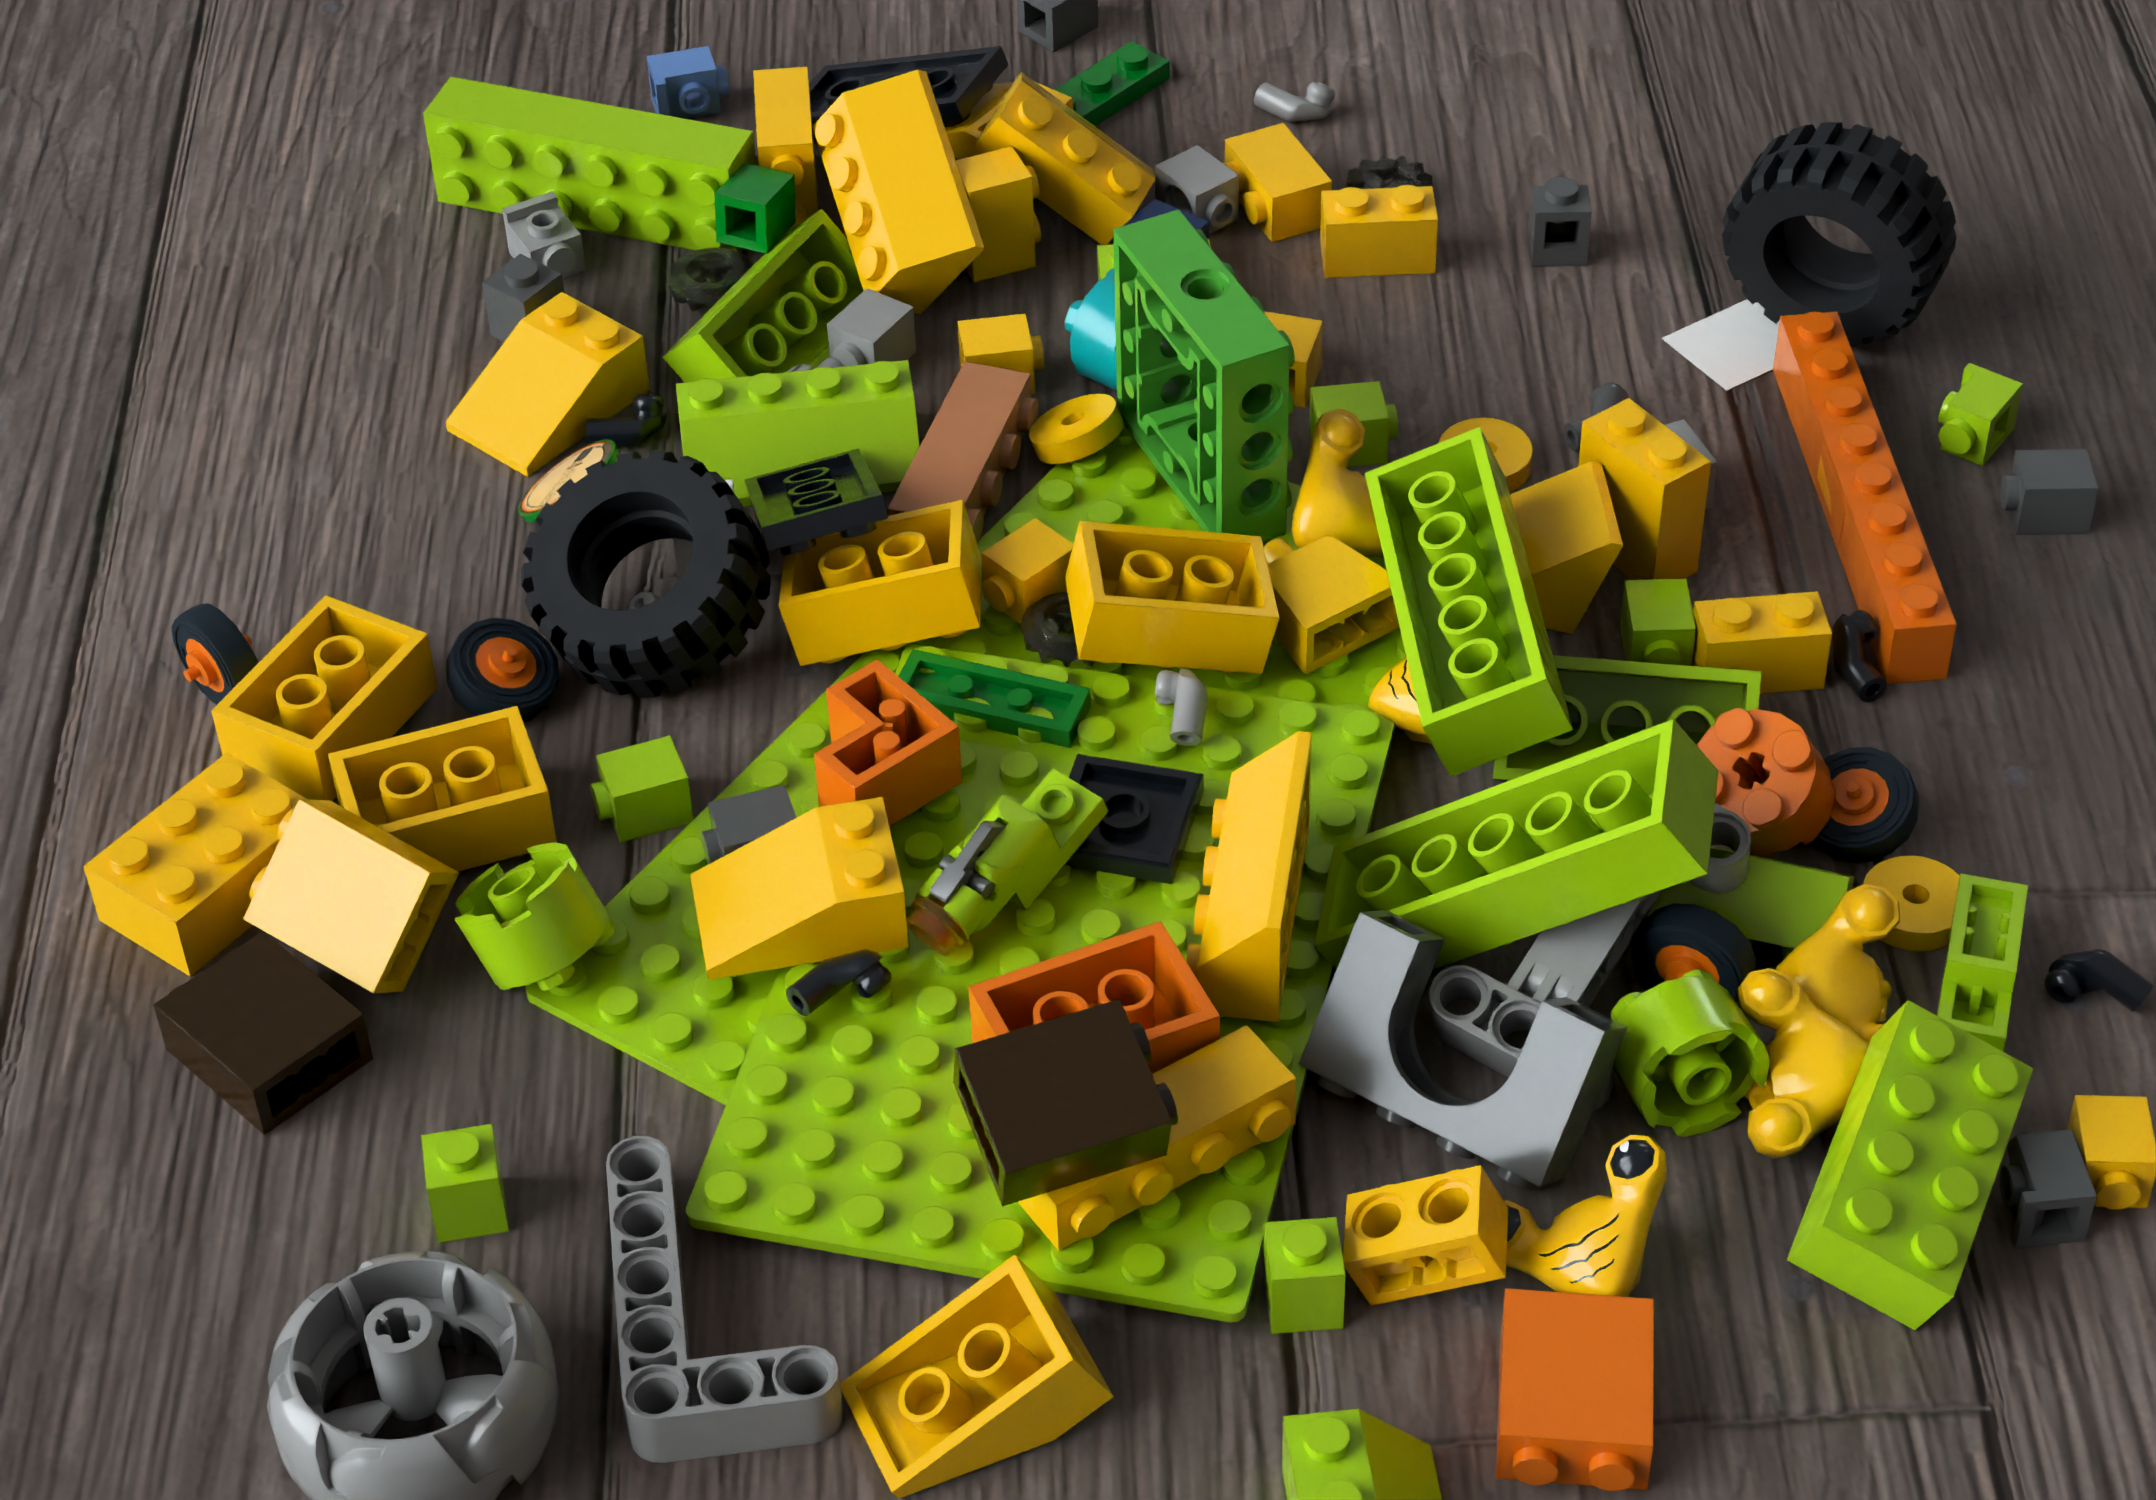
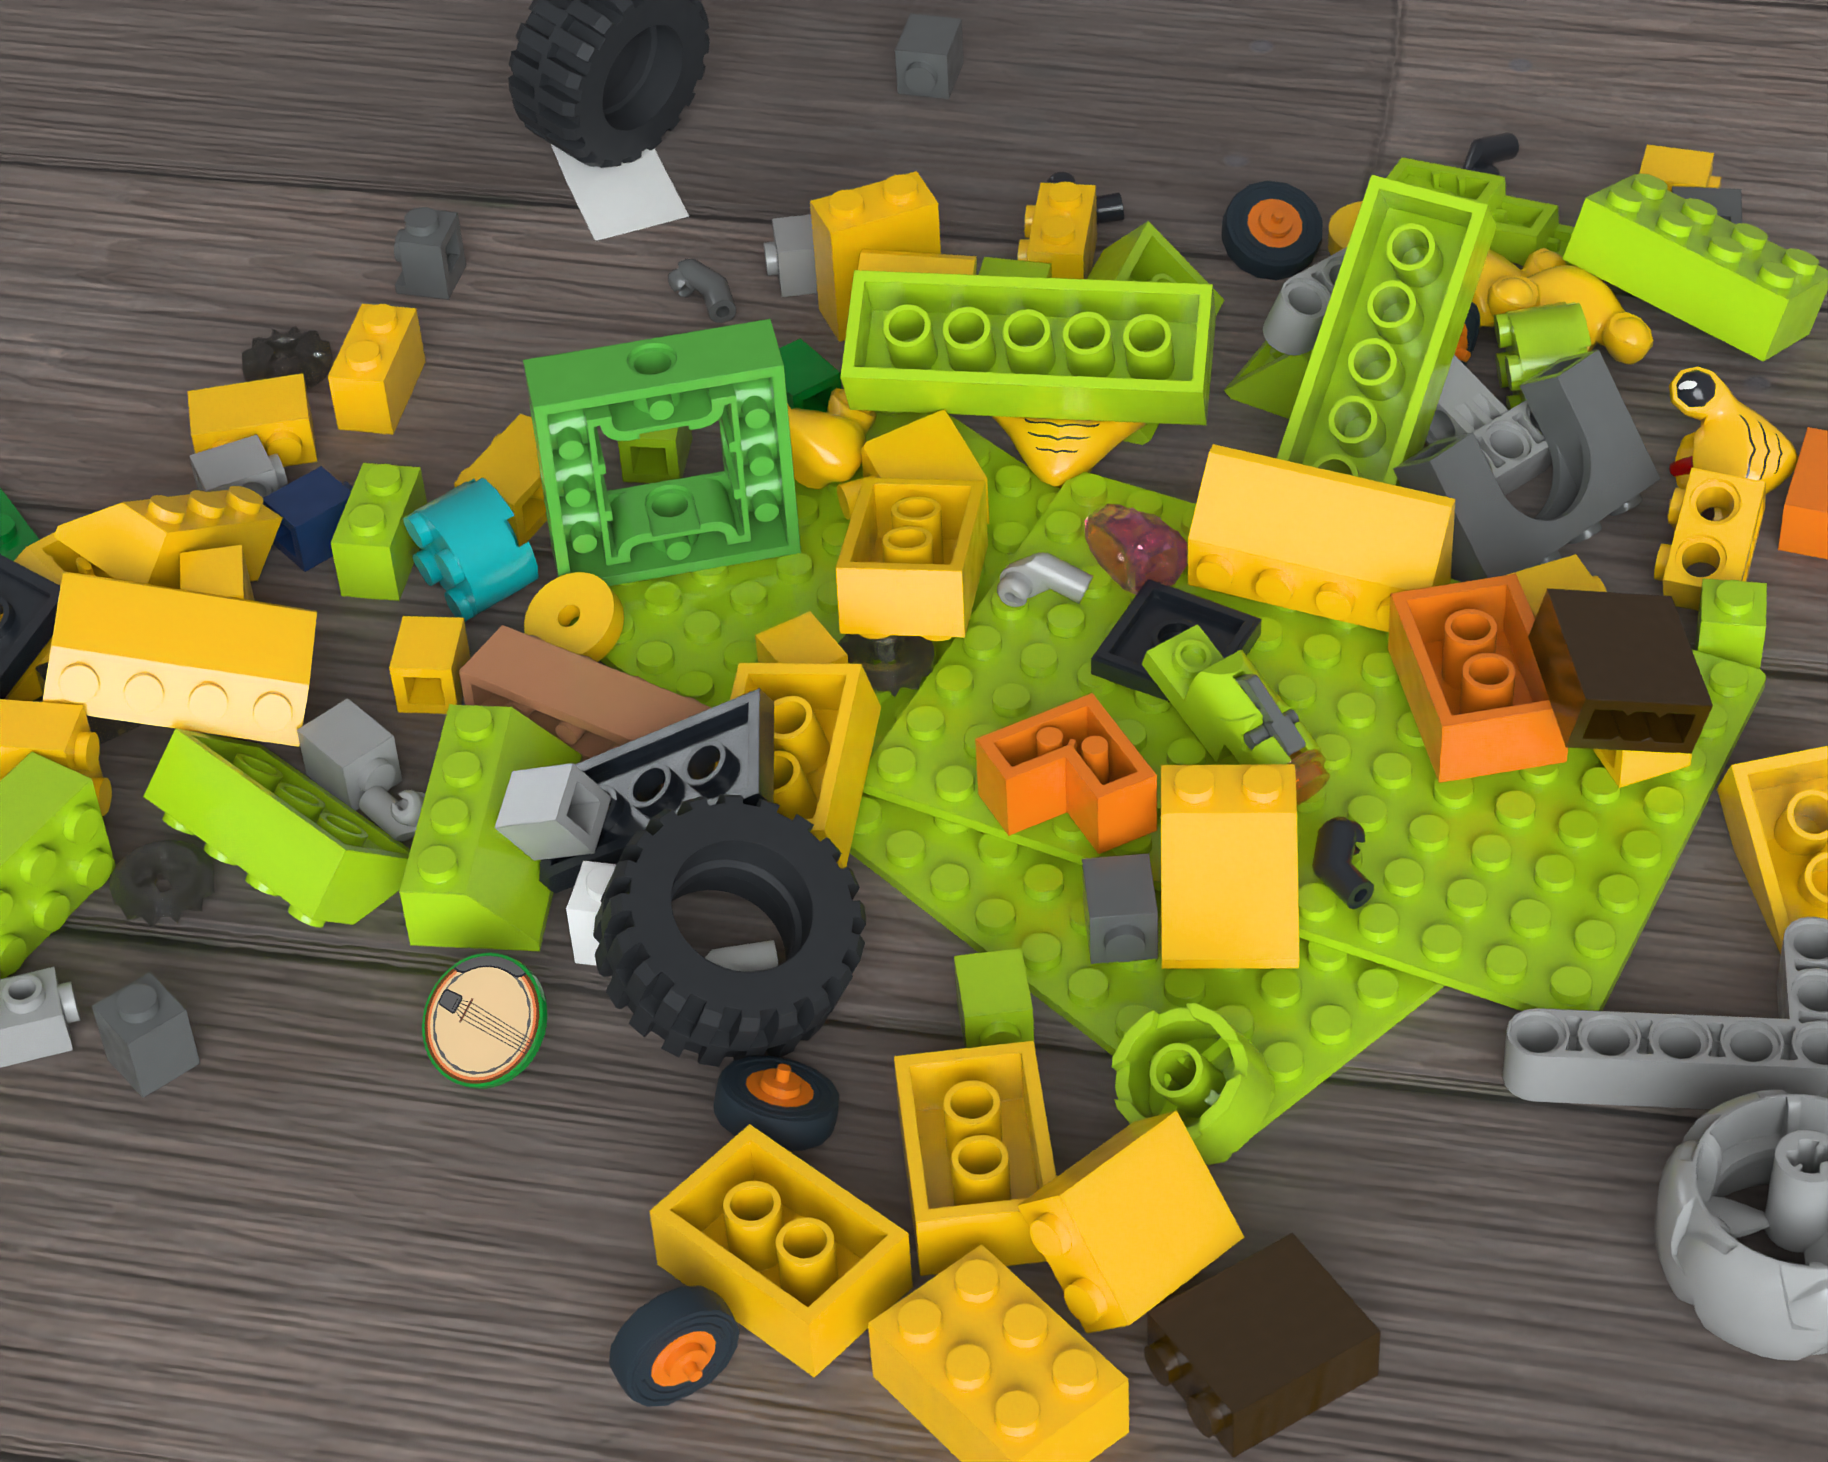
camera: 75 degrees left, 0 degrees up
(464, 1183) = (1517, 1184): lime brick -> none
(547, 381) = (297, 1030): yellow slope -> none
(633, 429) = (389, 972): black arm -> none
(755, 208) = (132, 790): green brick -> none
(781, 446) = (553, 812): none -> light grey brick
(1006, 692) = (972, 702): green plate -> none
(1234, 742) = (1135, 546): none -> clear pink rock
(1296, 108) = (119, 401): light grey arm -> none
(1772, 749) = (1252, 255): orange brick -> none
(1863, 498) = (857, 146): orange brick -> none
(1979, 414) = (813, 71): lime brick -> none

